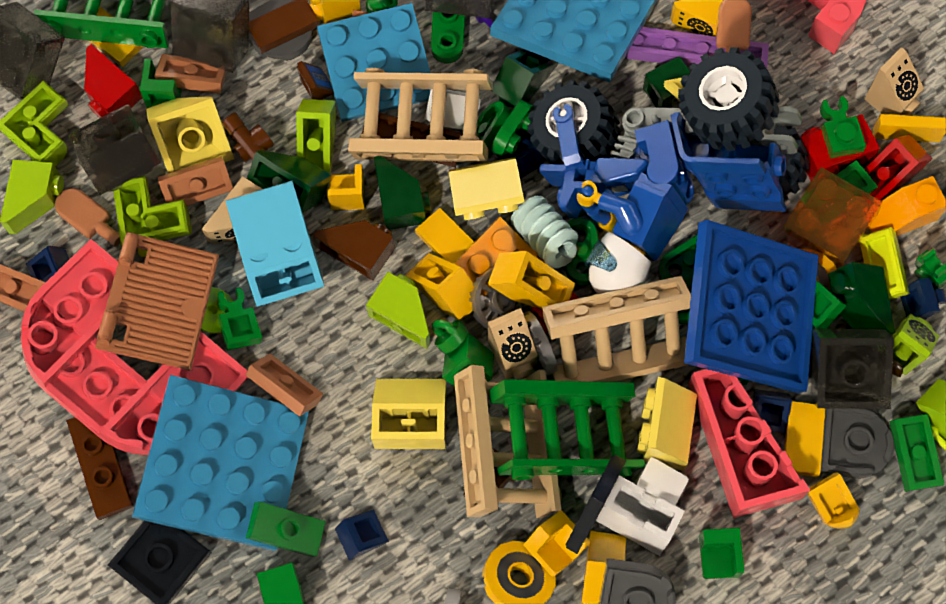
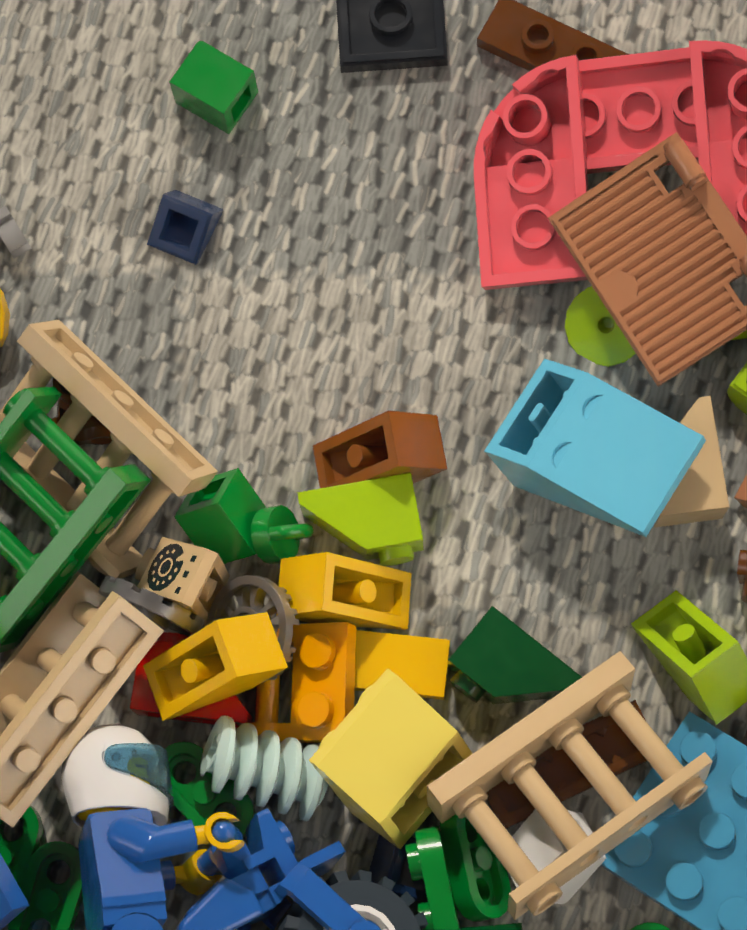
camera: 145 degrees right, 5 degrees up
(216, 459) = (411, 155): dark azure plate -> none
(238, 324) = (553, 330): green plate -> none
(277, 168) = (667, 563): dark green slope -> none
(284, 384) = (428, 308): nougat plate -> none
(285, 529) = (269, 148): green plate -> none
(347, 190) = (585, 617): yellow panel -> none
(358, 246) = (498, 551): reddish brown slope -> none
(372, 333) = (382, 448): none -> dark orange slope
(409, 414) = (243, 395): light yellow slope -> none

